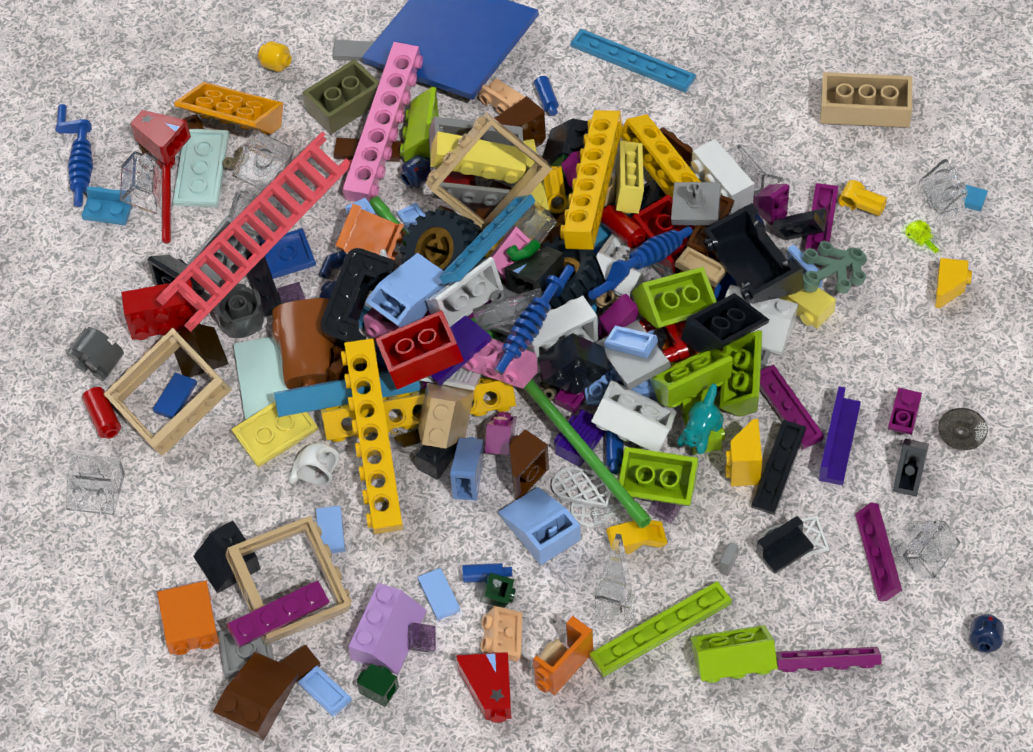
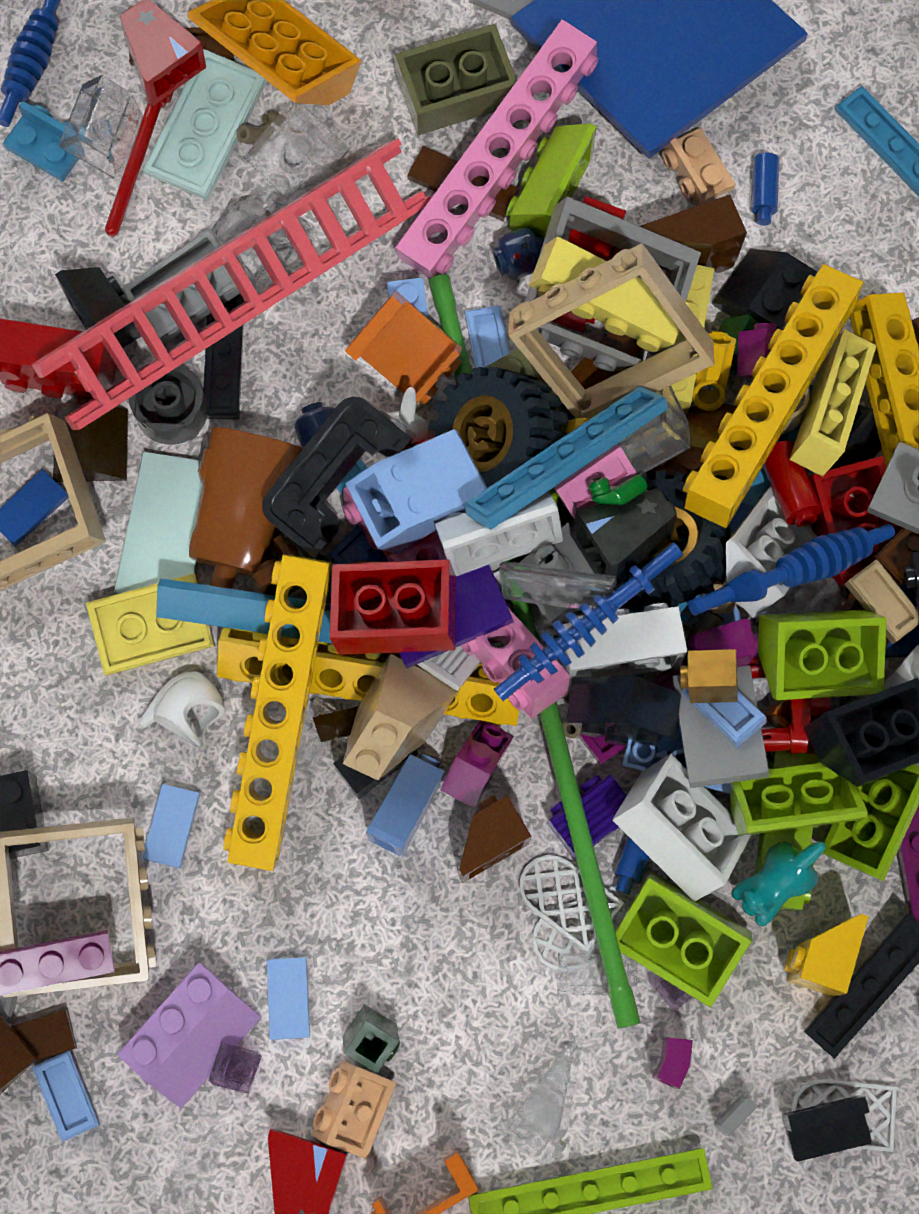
camera: 15 degrees right, 20 degrees up
(290, 254) = (283, 328): blue tile -> none
(291, 293) = (257, 401): clear purple plate -> none
(332, 262) = (336, 364): dark blue arm -> none
(377, 684) = (142, 1121): dark green brick -> none
(479, 572) = (368, 991): blue cylinder -> none
(541, 524) = (477, 941): light blue slope -> none
(553, 652) = (411, 1175): tan cone -> none
(616, 325) = (710, 676): none -> pearl gold brick
(635, 537) = (595, 1019): yellow slope -> none
(681, 542) = (674, 1061): none -> magenta piece

